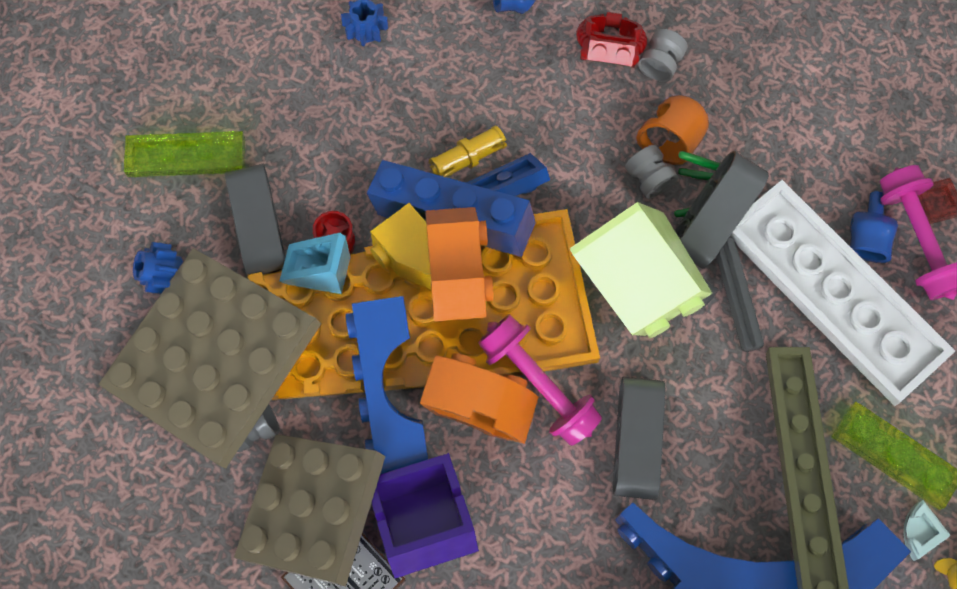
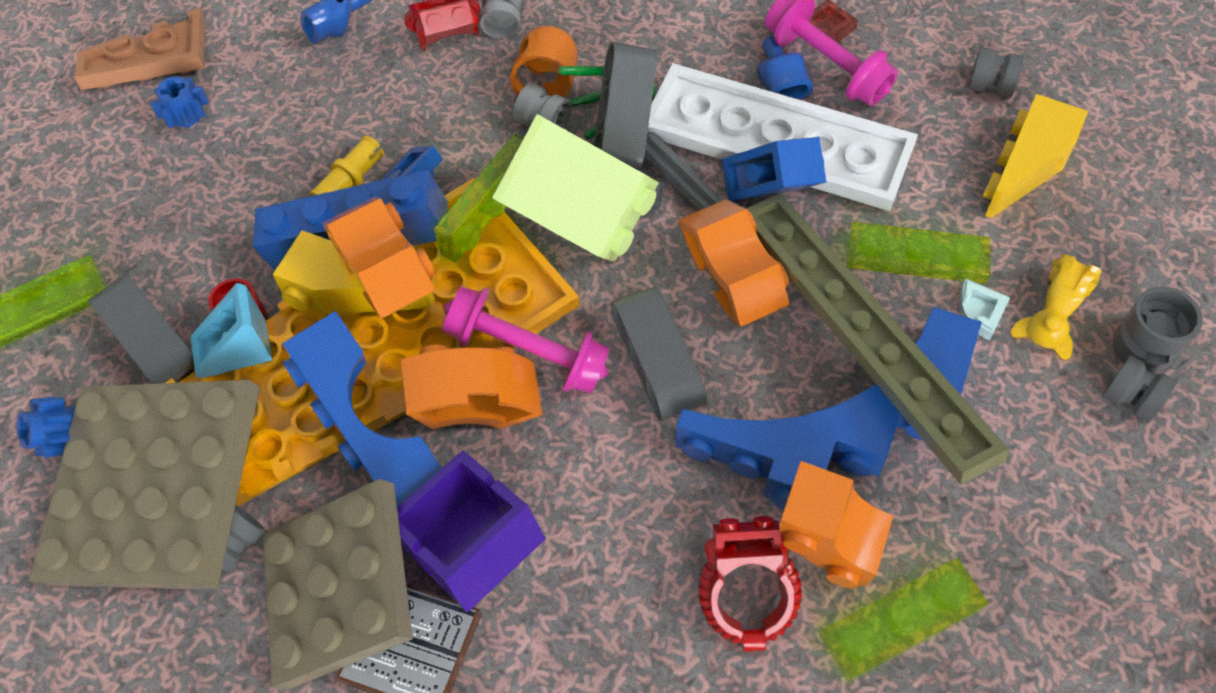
camera: 20 degrees left, 10 degrees down
(536, 256) = (475, 208): none -> clear neon green plate
(742, 405) = (727, 245): none -> orange brick
(814, 328) = (774, 169): none -> blue slope

